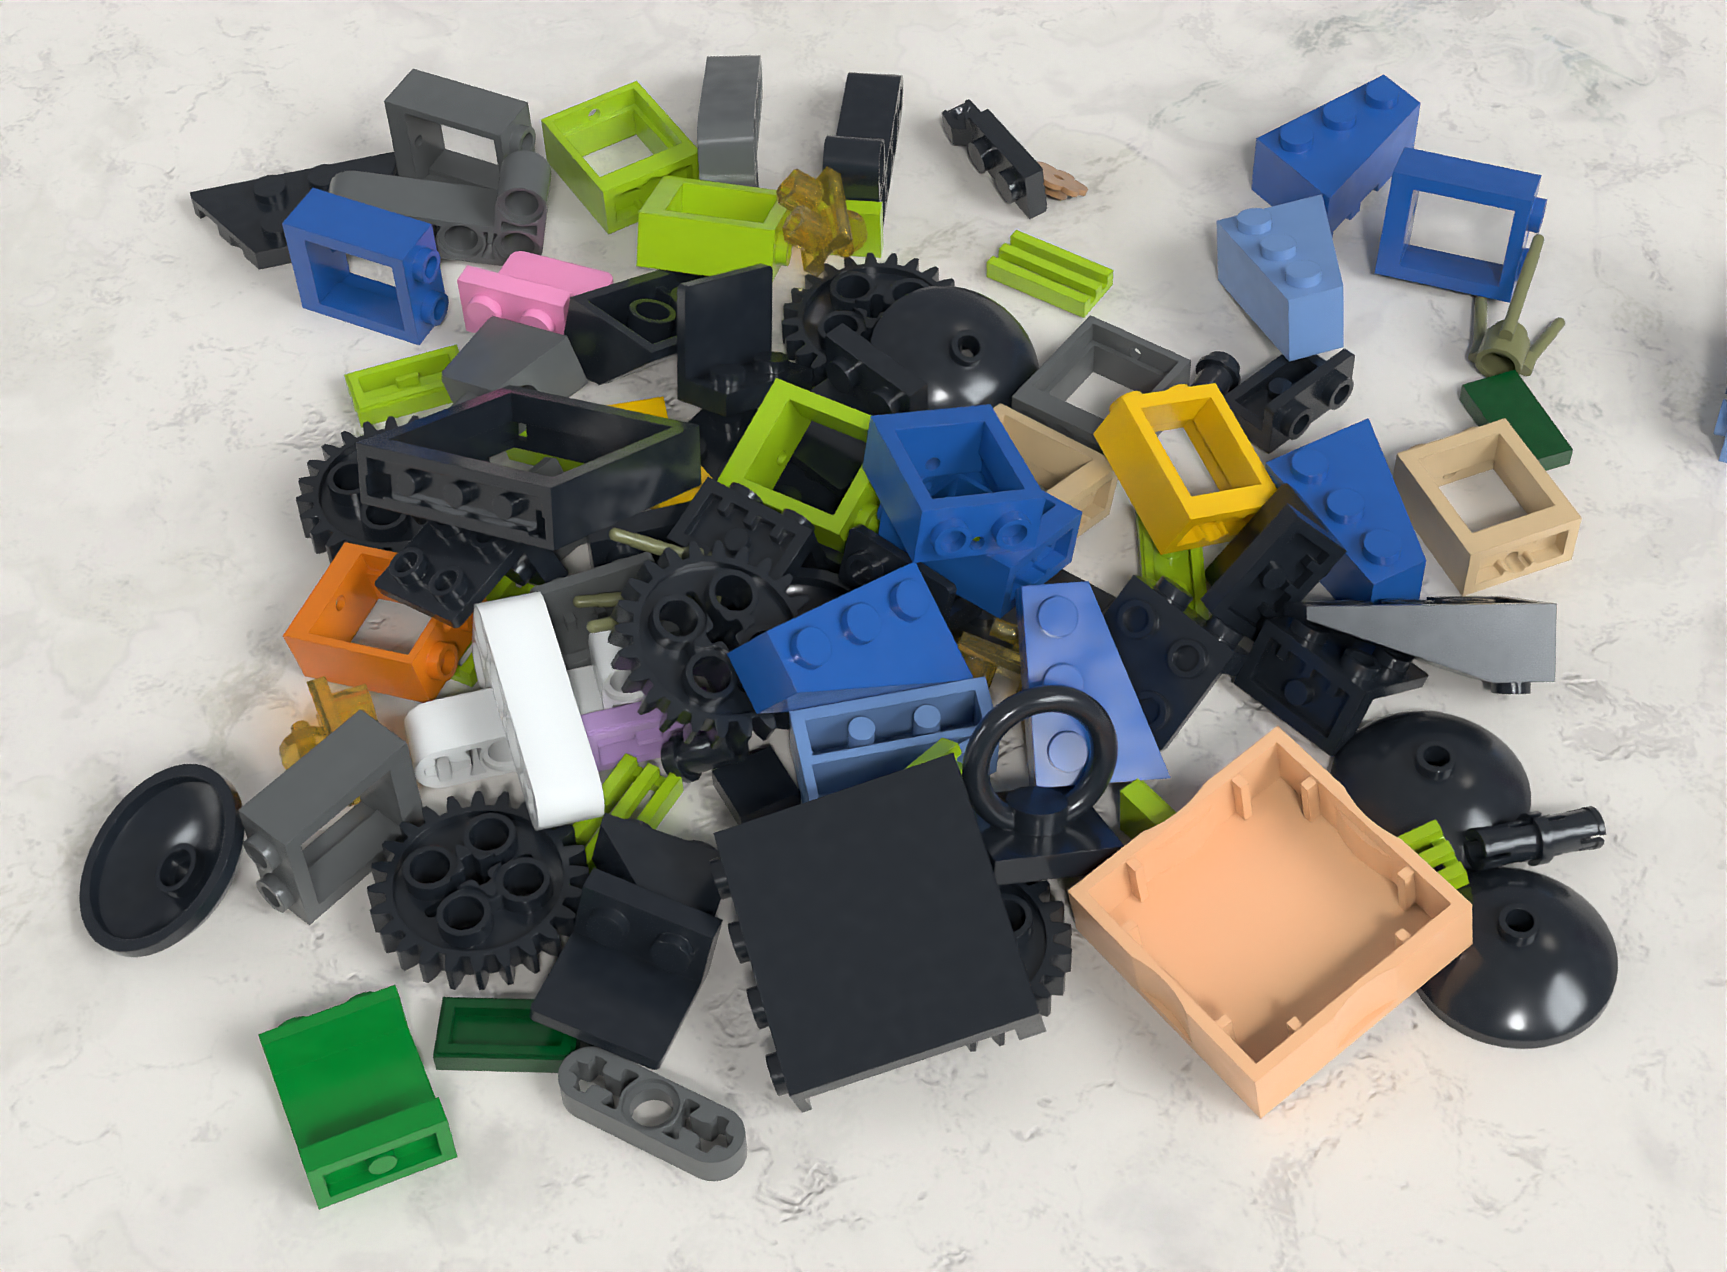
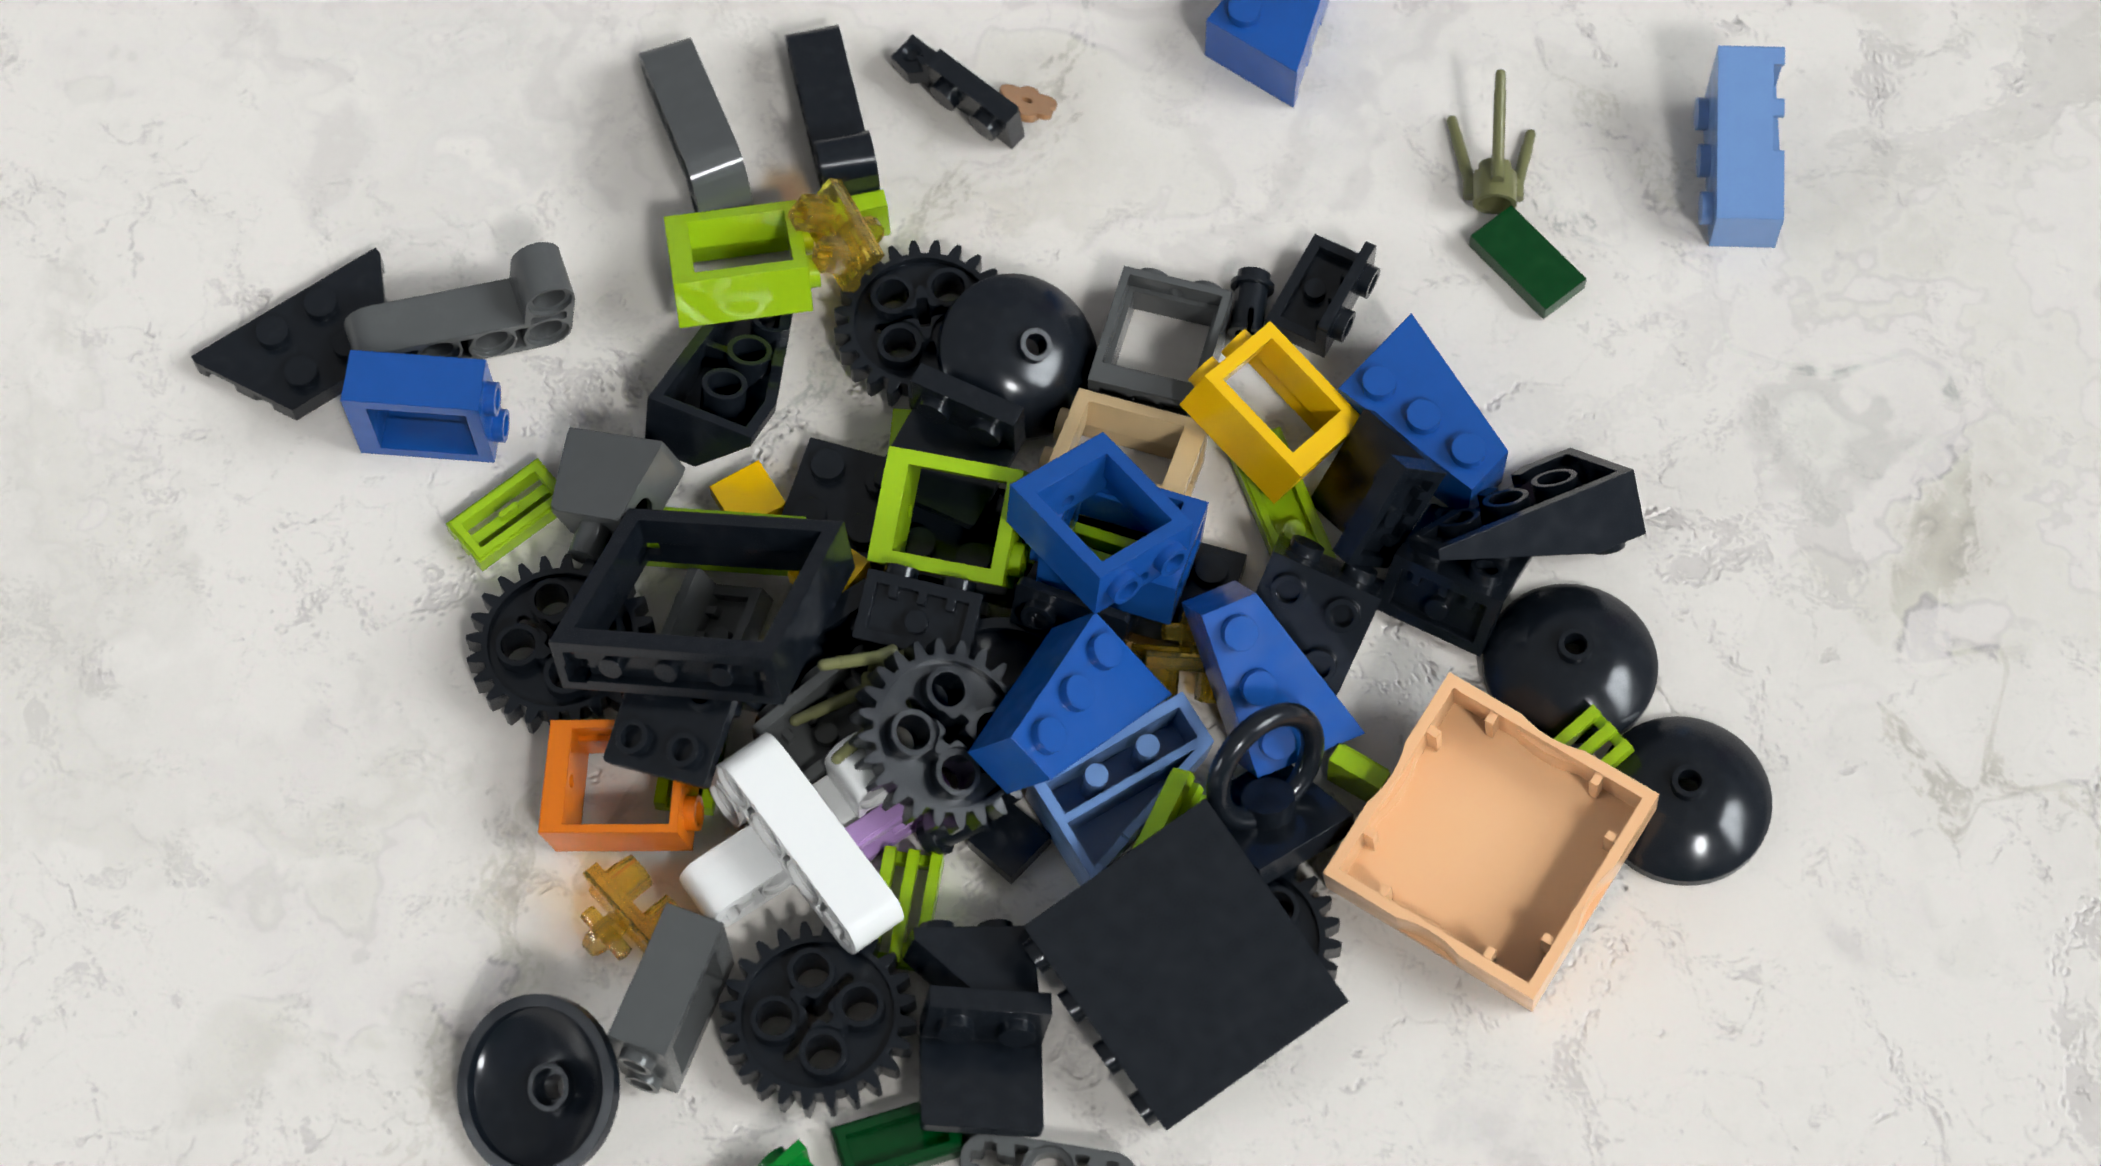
camera: 20 degrees left, 15 degrees up
(428, 101) = (447, 231): dark grey window -> none
(526, 291) = (593, 384): bright pink bracket -> none
(619, 115) = (638, 228): lime window -> none
(727, 342) = (811, 415): black bracket -> none
(1054, 268) = (1060, 204): lime tile -> none
(1285, 274) = (1283, 166): medium blue wedge -> none
(1464, 181) = (1421, 35): blue window -> none
(1482, 558) = (1528, 423): tan window -> none
(1534, 838) = (1672, 689): black pin -> none

